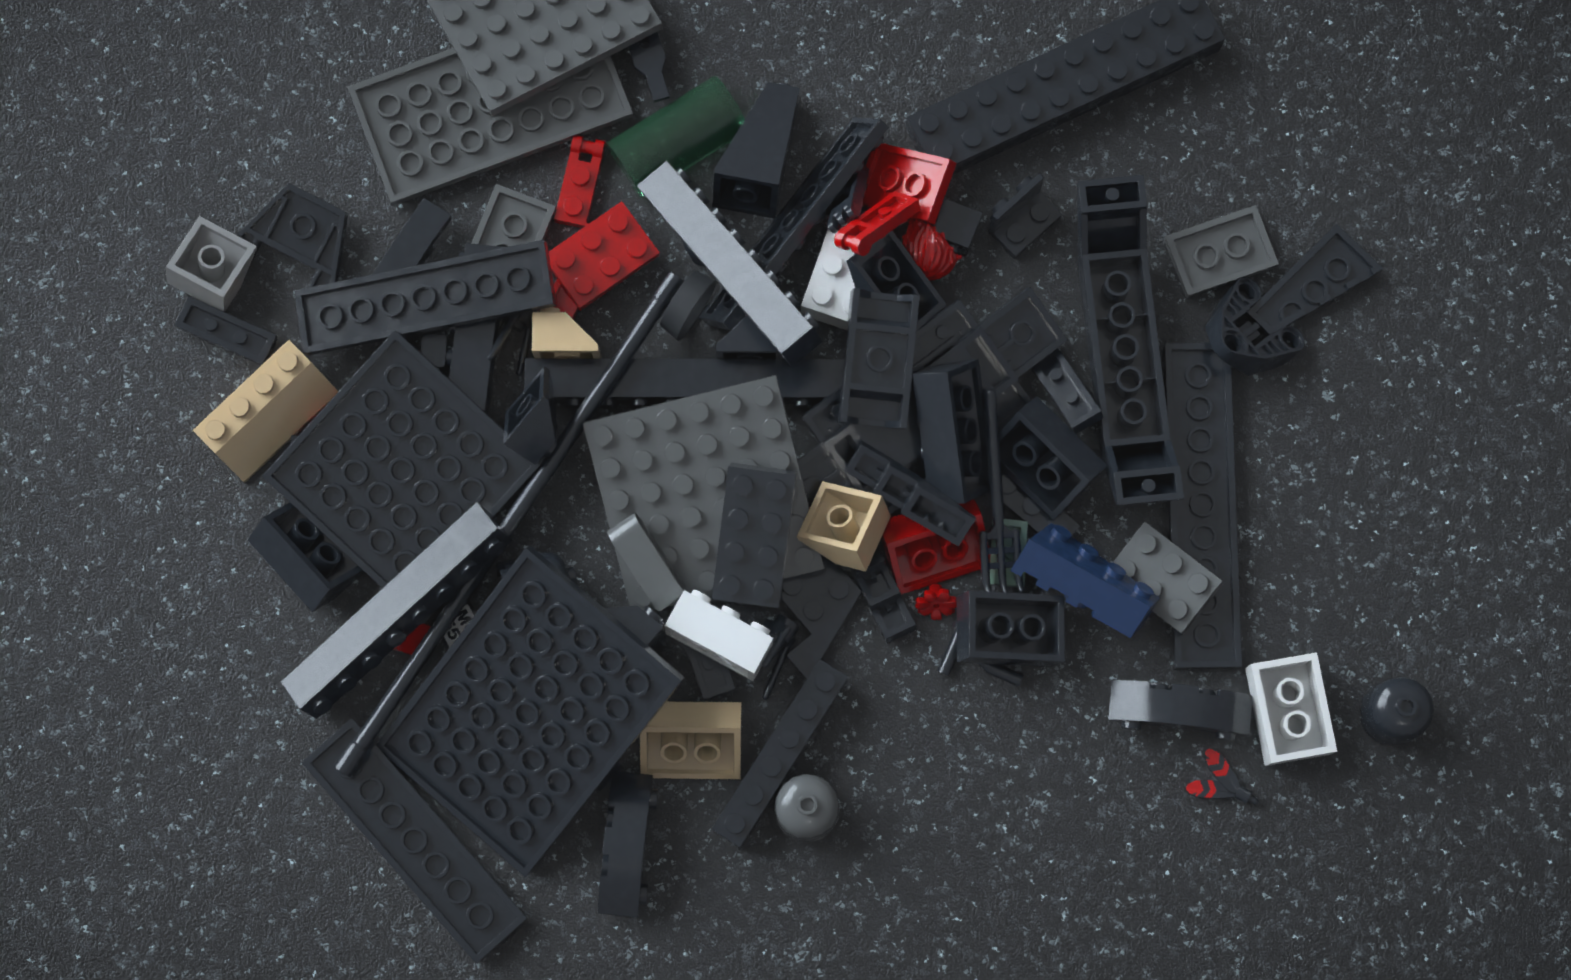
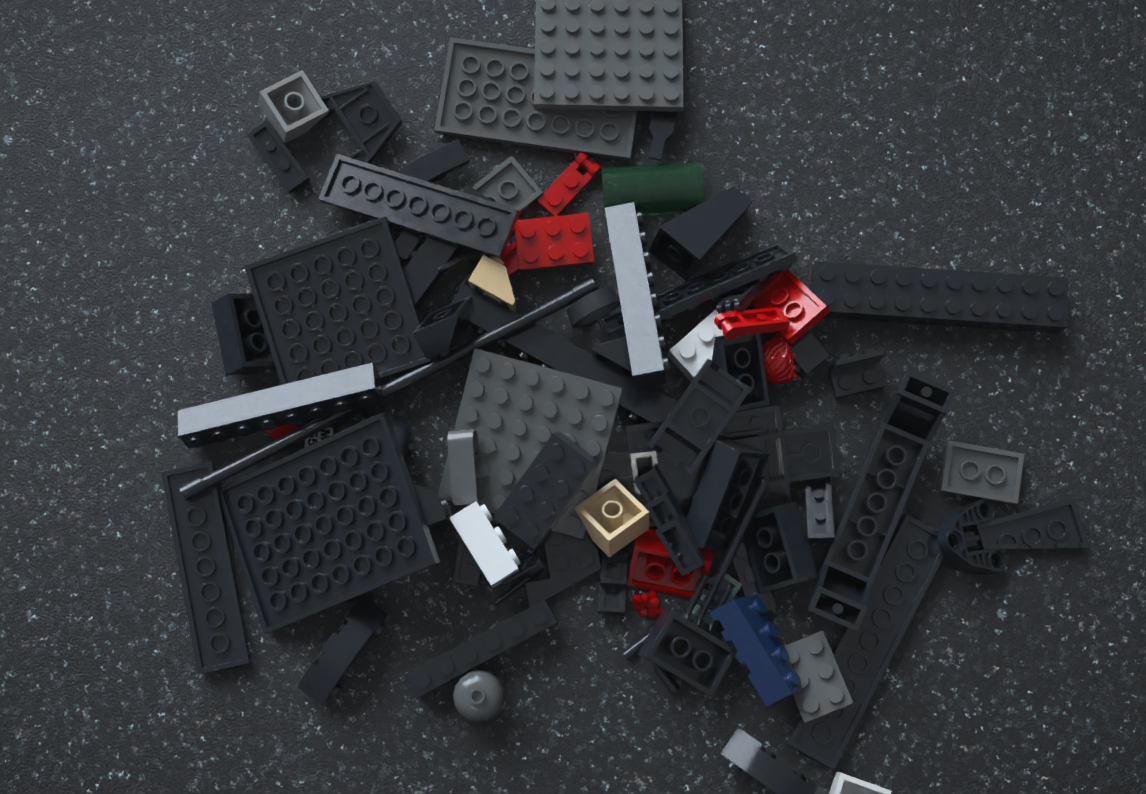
camera: 30 degrees right, 0 degrees up
(266, 411) = (272, 224): tan slope -> none
(693, 741) = (428, 606): tan slope -> none

